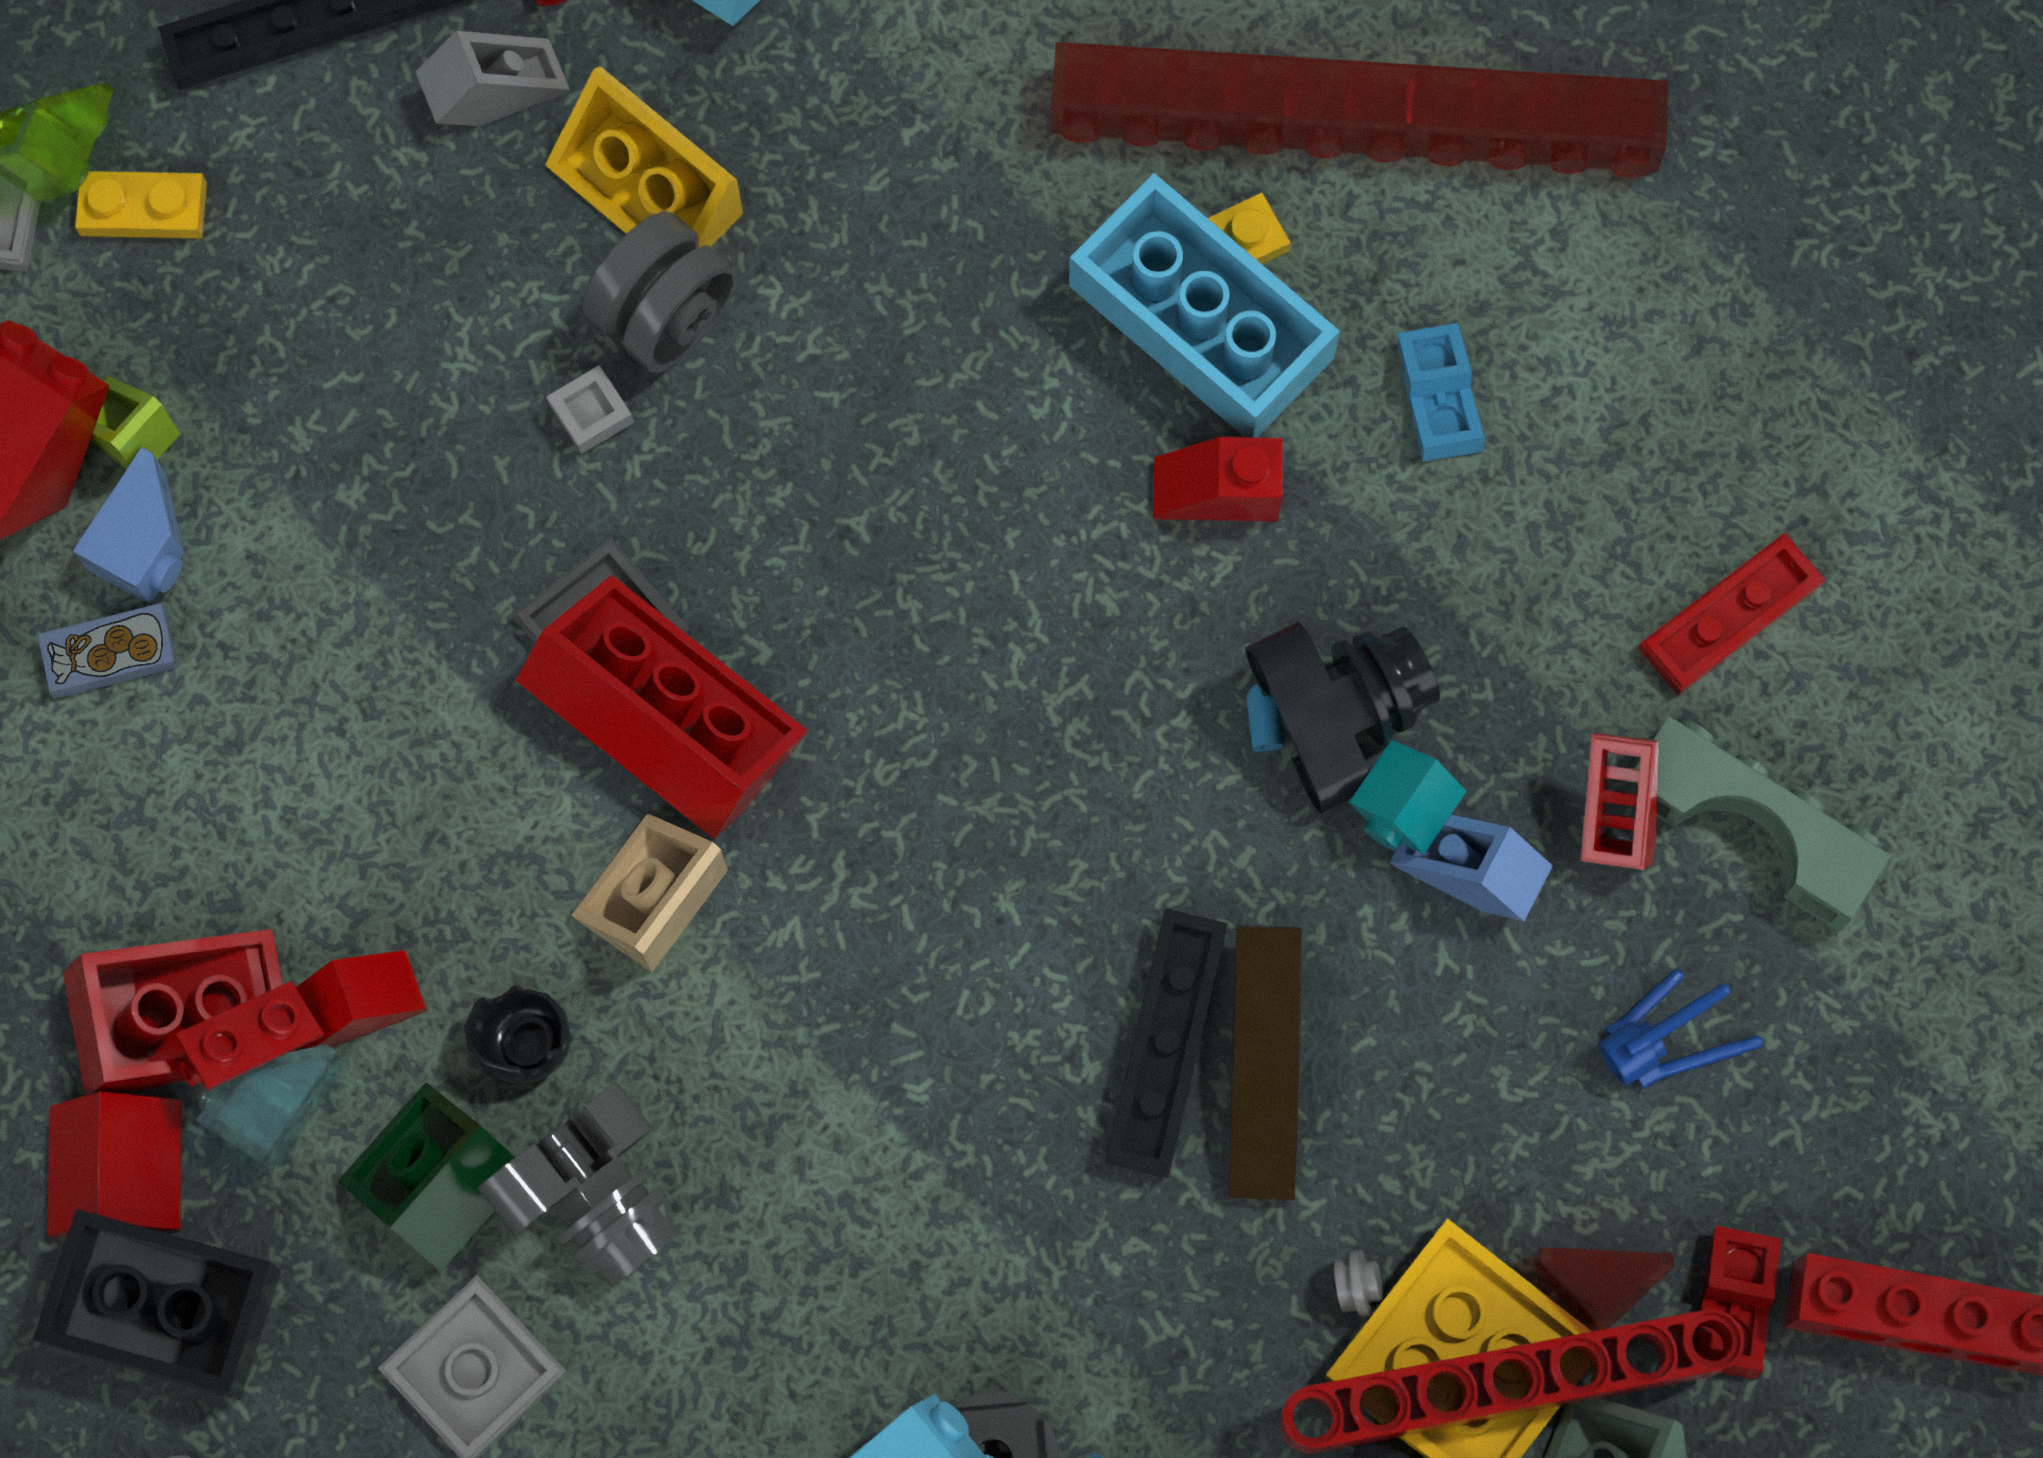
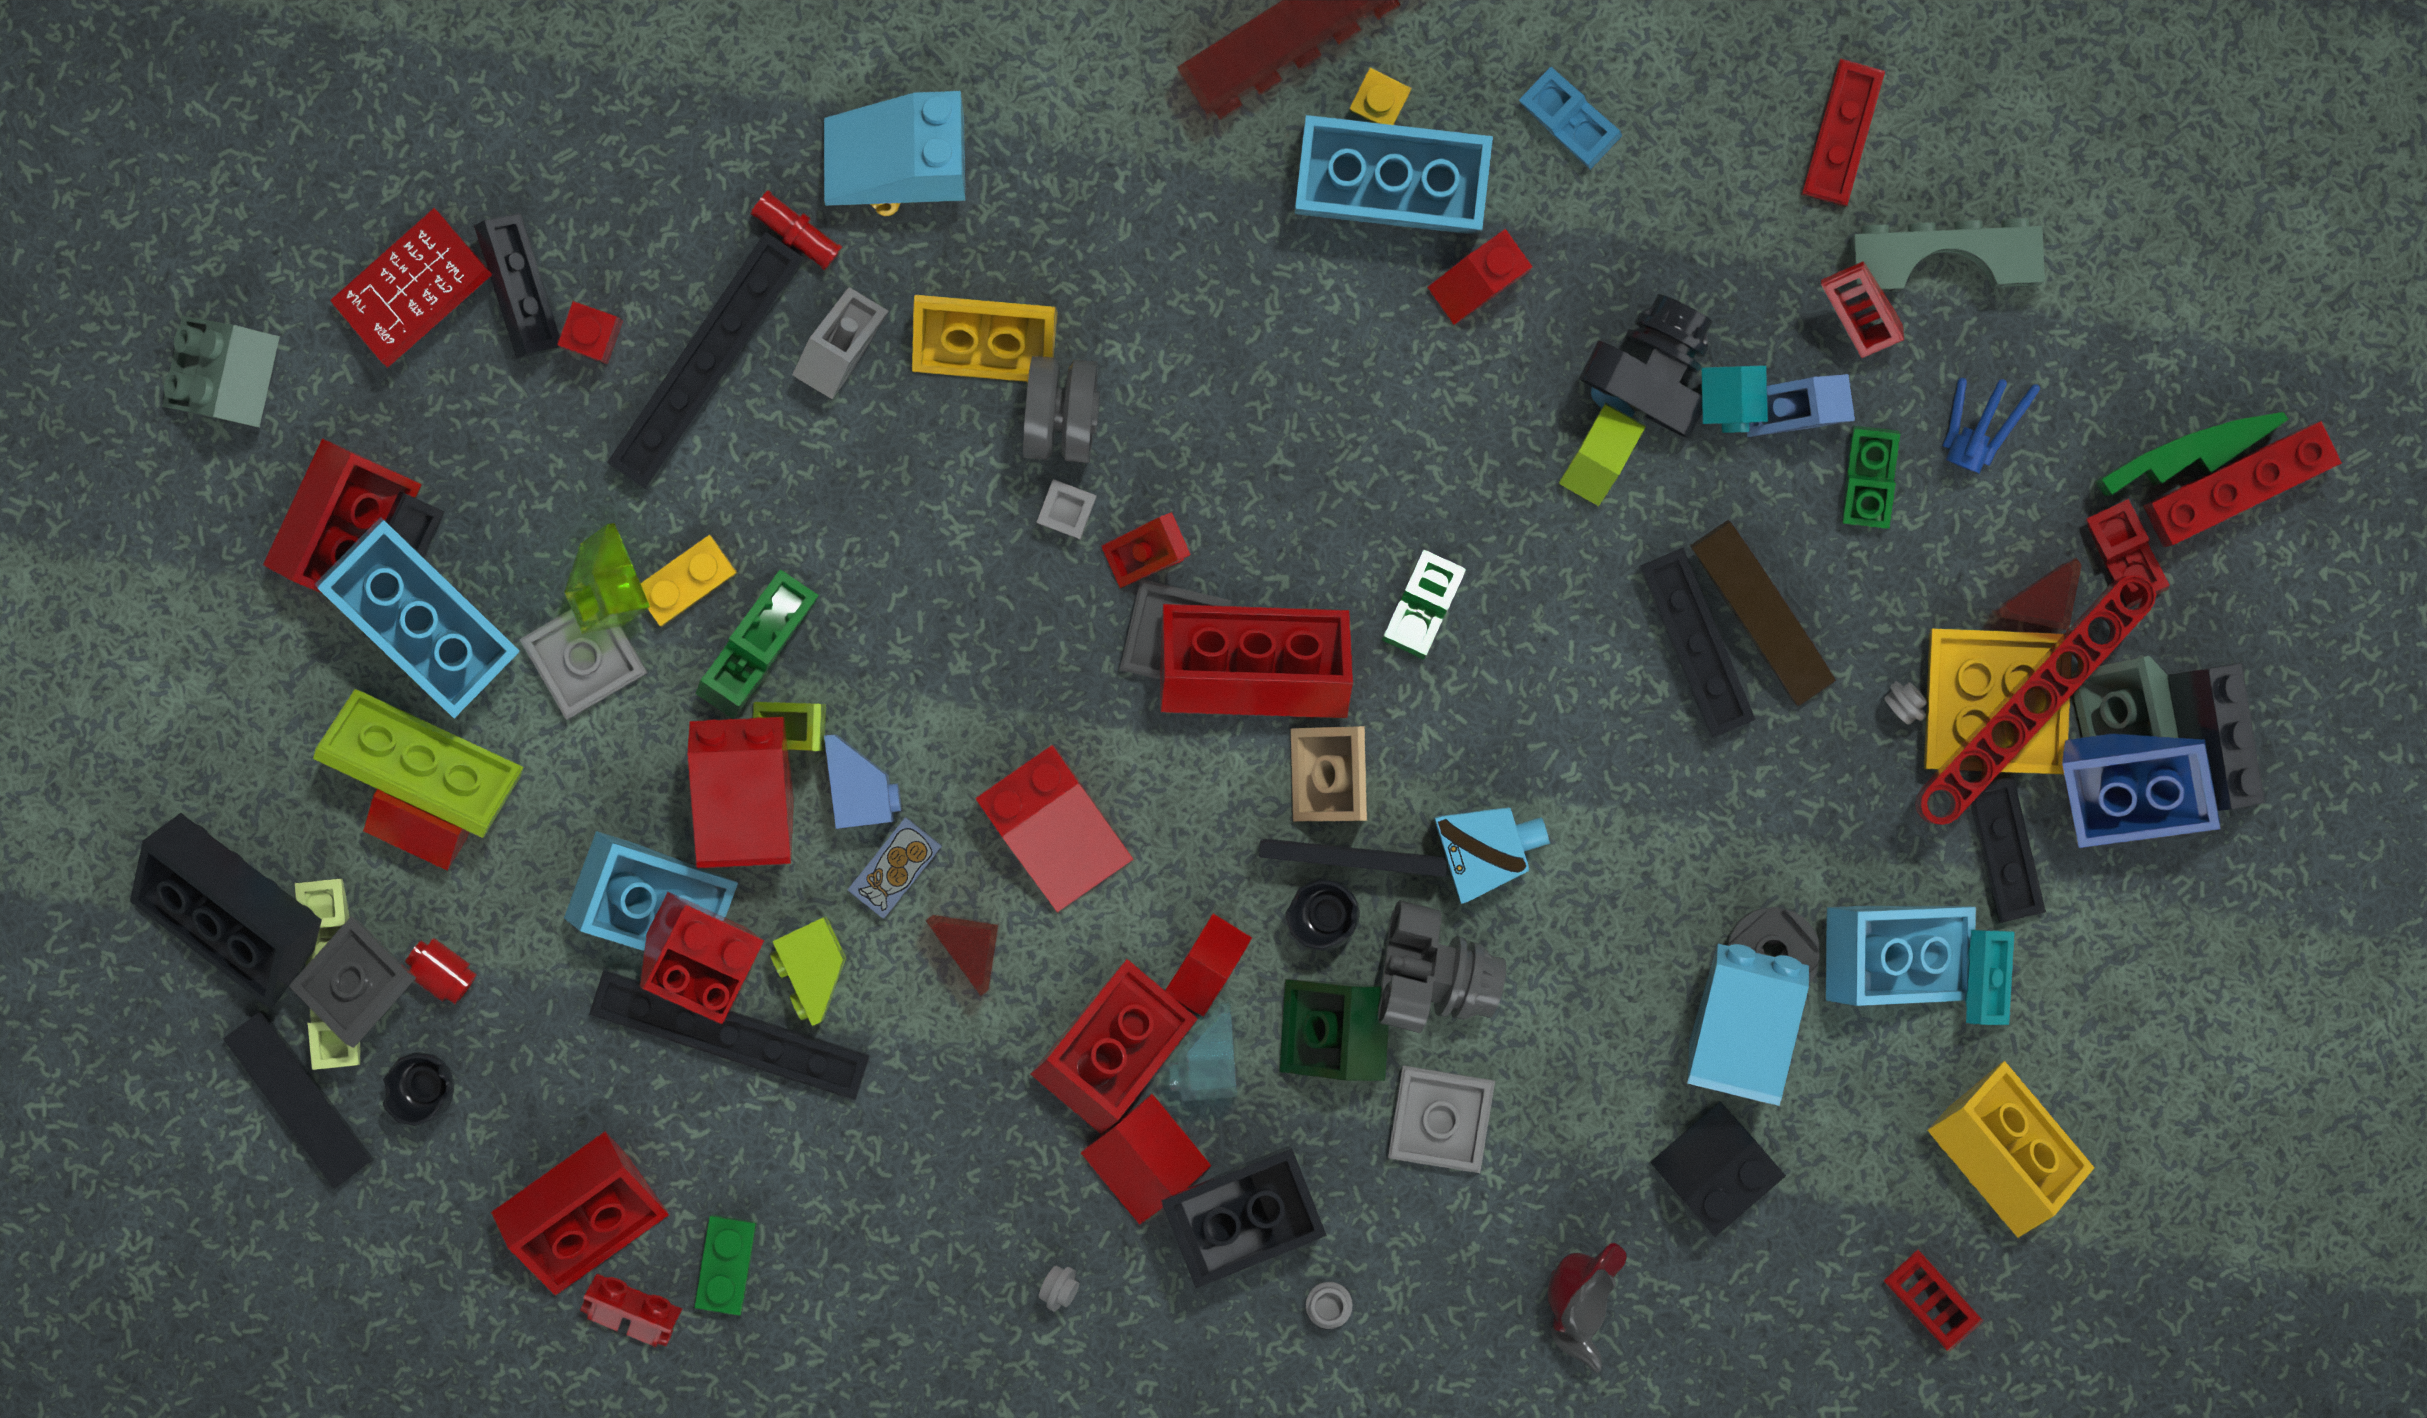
camera: 35 degrees left, 15 degrees up
(114, 790) = (970, 944): none -> clear red slope
(154, 311) = (756, 644): none -> green slope
(247, 1037) = (1175, 1034): red hinge -> none
(307, 725) = (1054, 828): none -> slope
(602, 996) = (1353, 857): none -> black tile
(641, 508) = (1146, 550): none -> red slope
(757, 1097) = (1487, 848): none -> medium azure torso
(895, 784) = (1423, 604): none -> slope
(1210, 759) = (1602, 454): none -> lime slope
(1497, 1003) = (1871, 477): none -> green slope
(1909, 1237) = (2206, 448): none -> green slope

